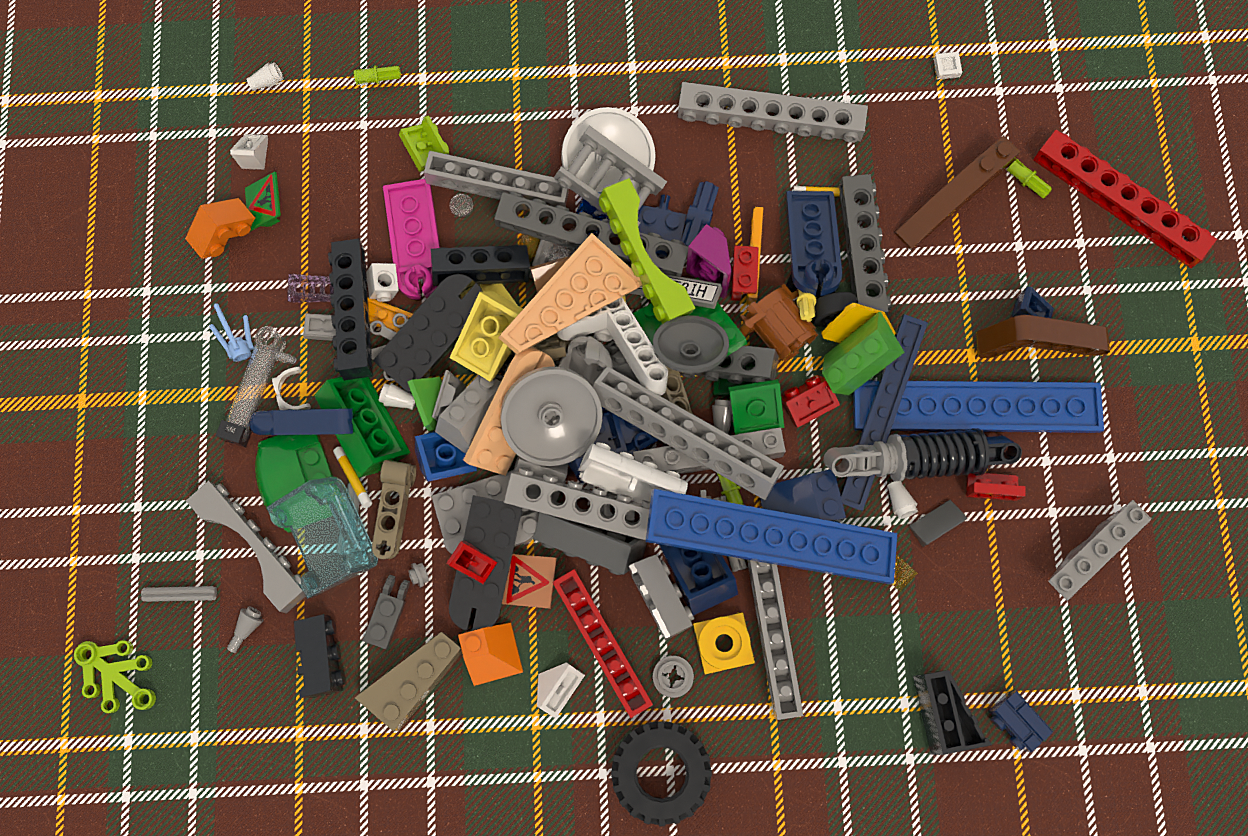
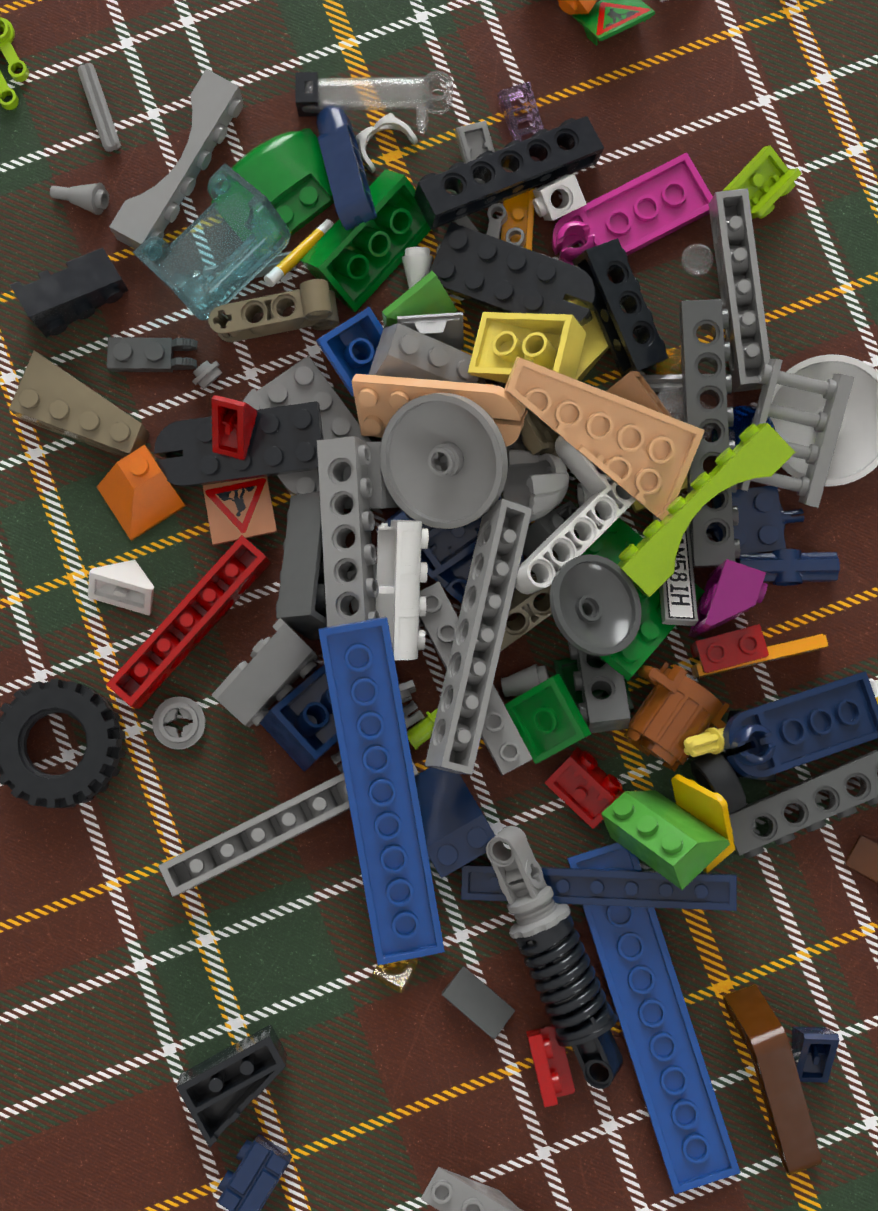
camera: 70 degrees right, 5 degrees up
(238, 348) = (416, 57): light blue plant -> none
(376, 74) = (837, 90): lime axle -> none
(711, 657) = (260, 781): yellow piece -> none
(902, 501) = (491, 947): white cone -> none

